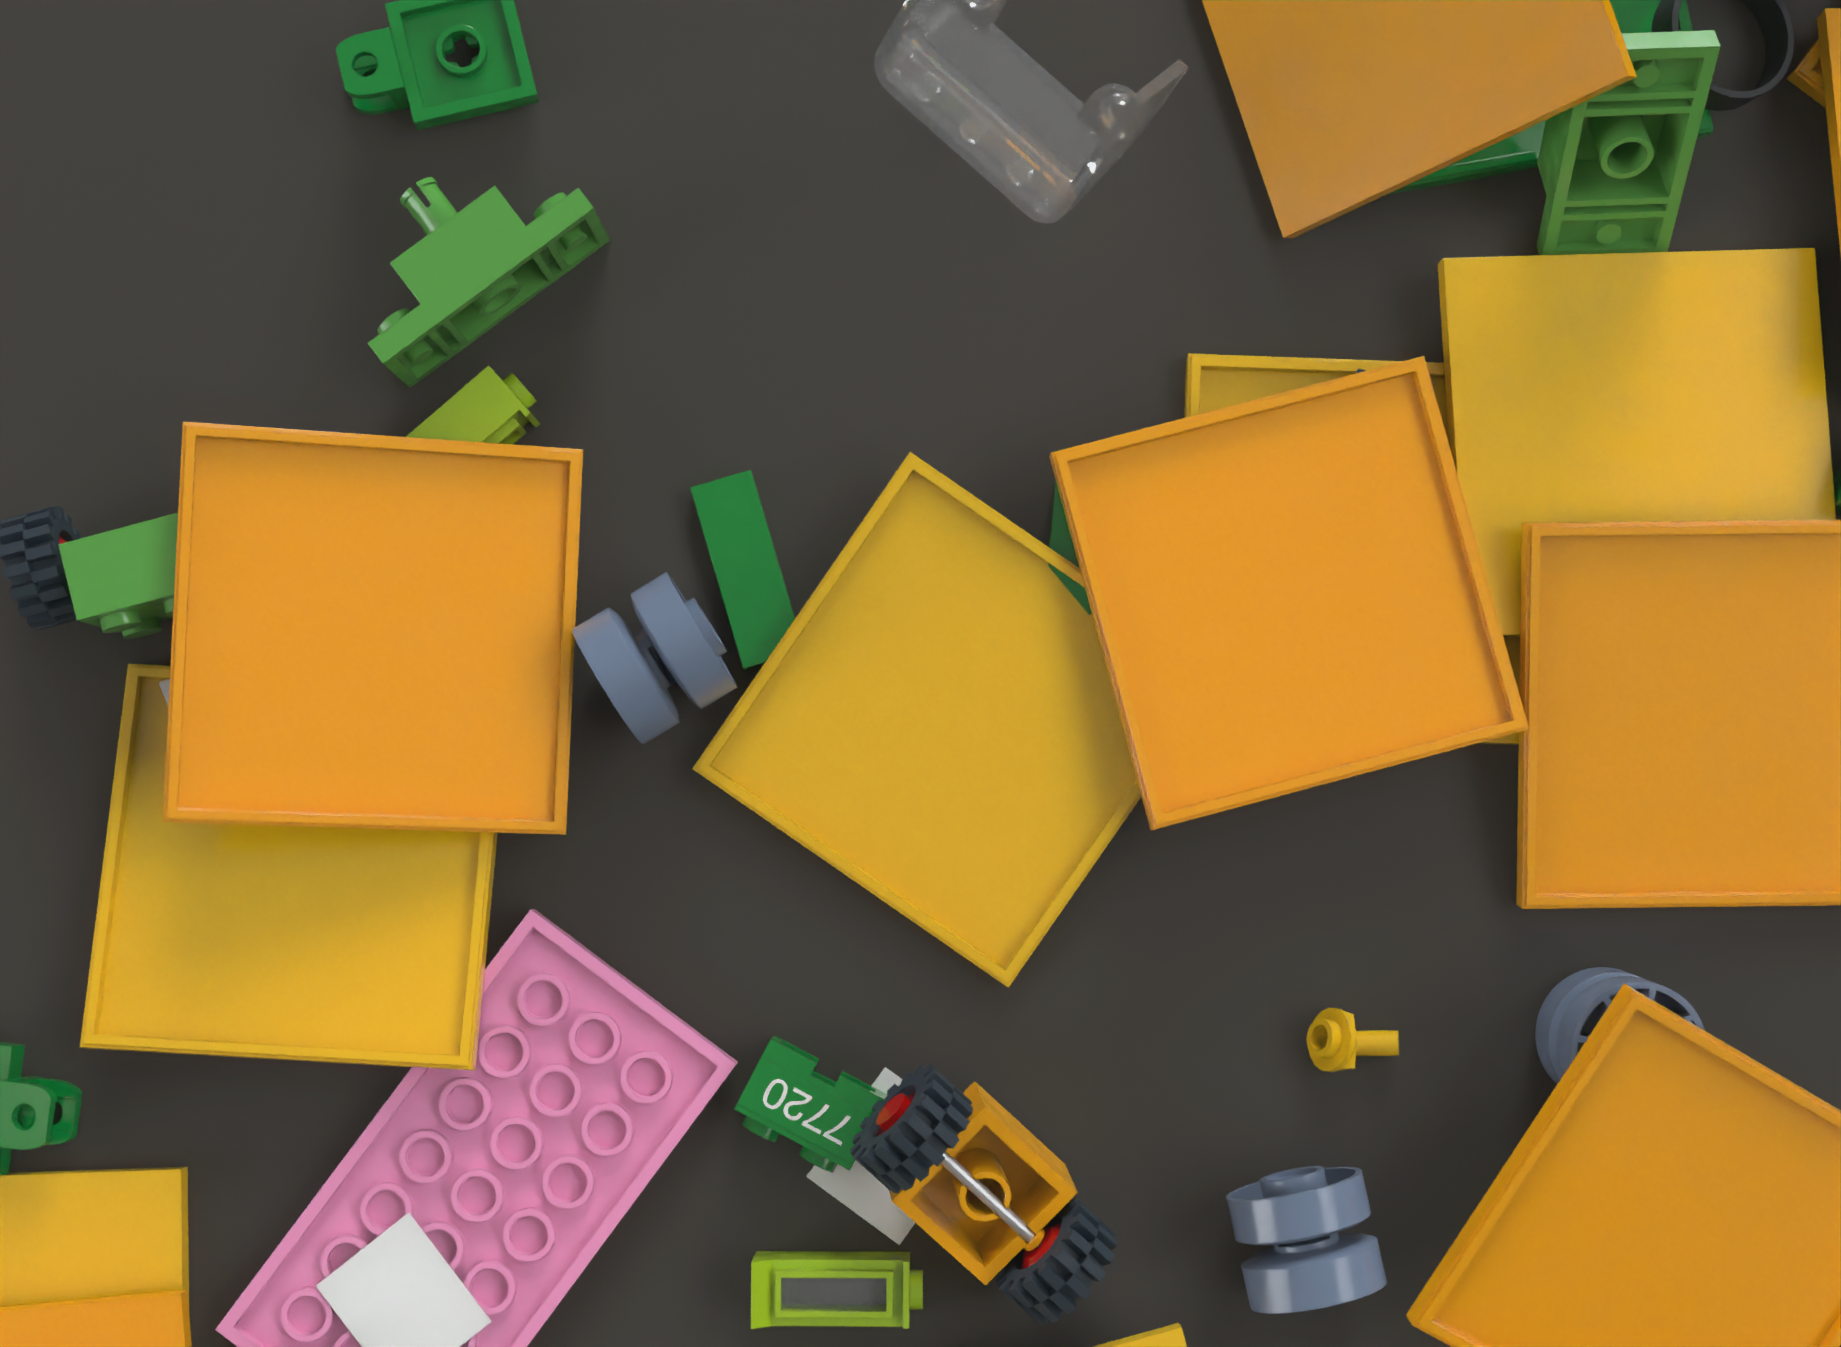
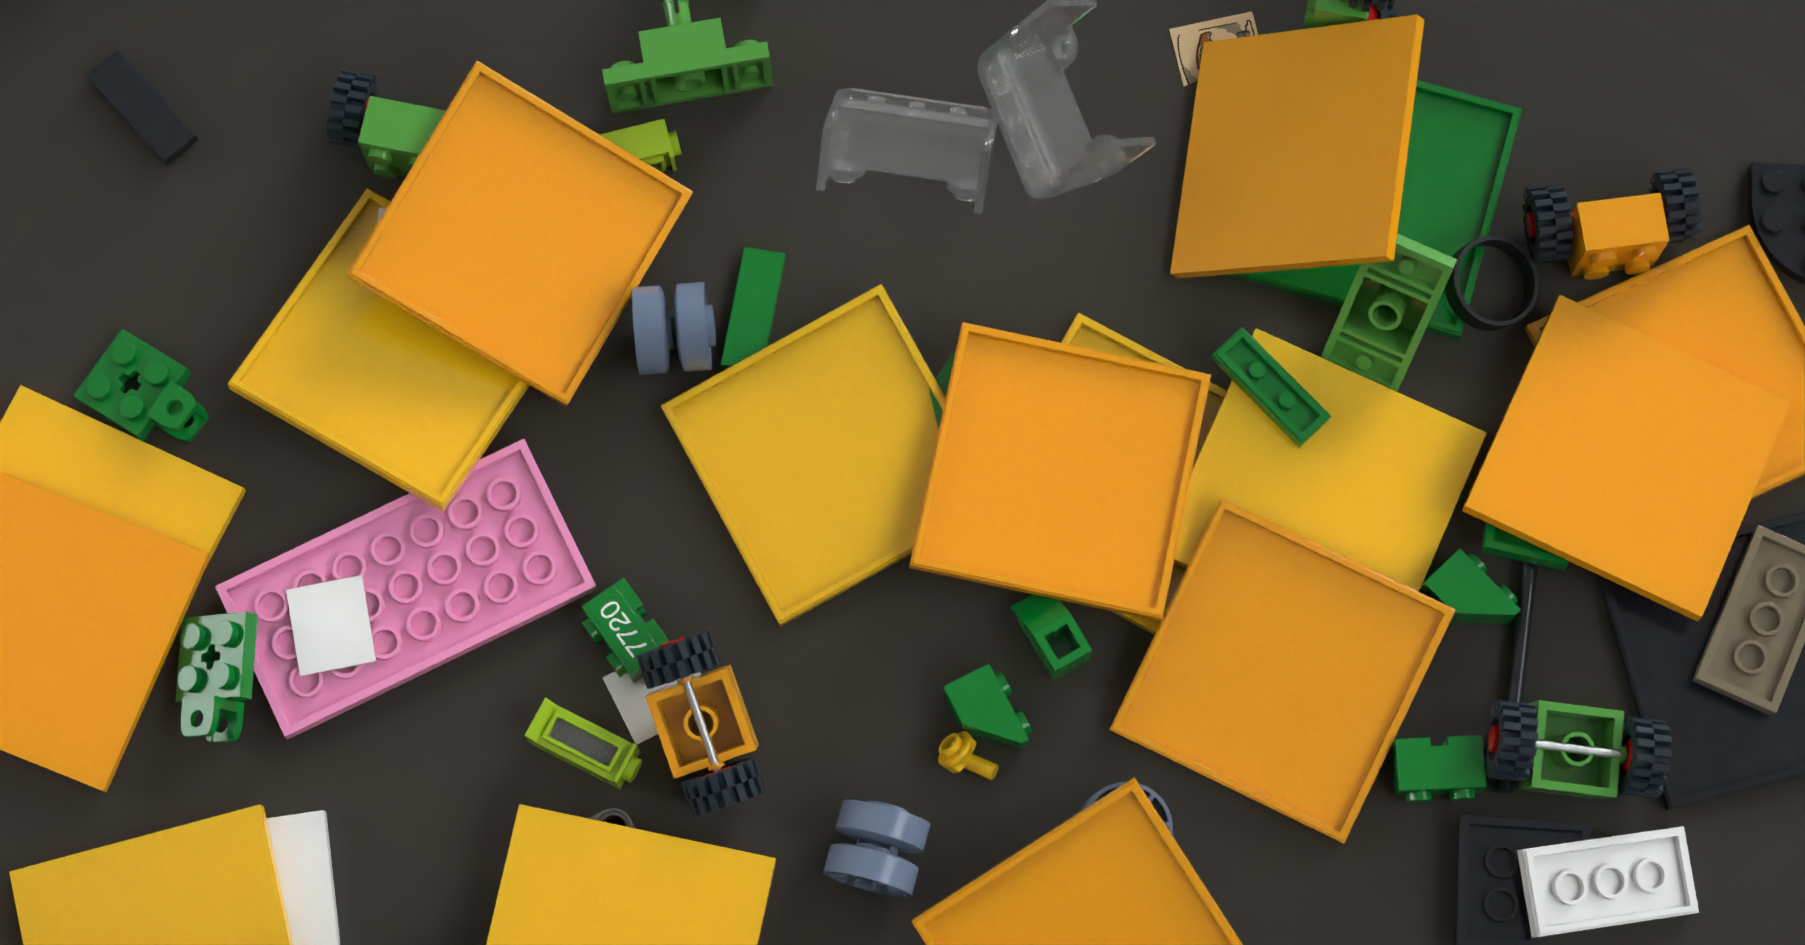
camera: 25 degrees right, 10 degrees down
(844, 221) = (909, 139): none -> clear windscreen
(1343, 966) = (984, 710): none -> green slope
(1386, 820) = (1052, 634): none -> green slope
(1507, 331) = (1270, 387): none -> green tile

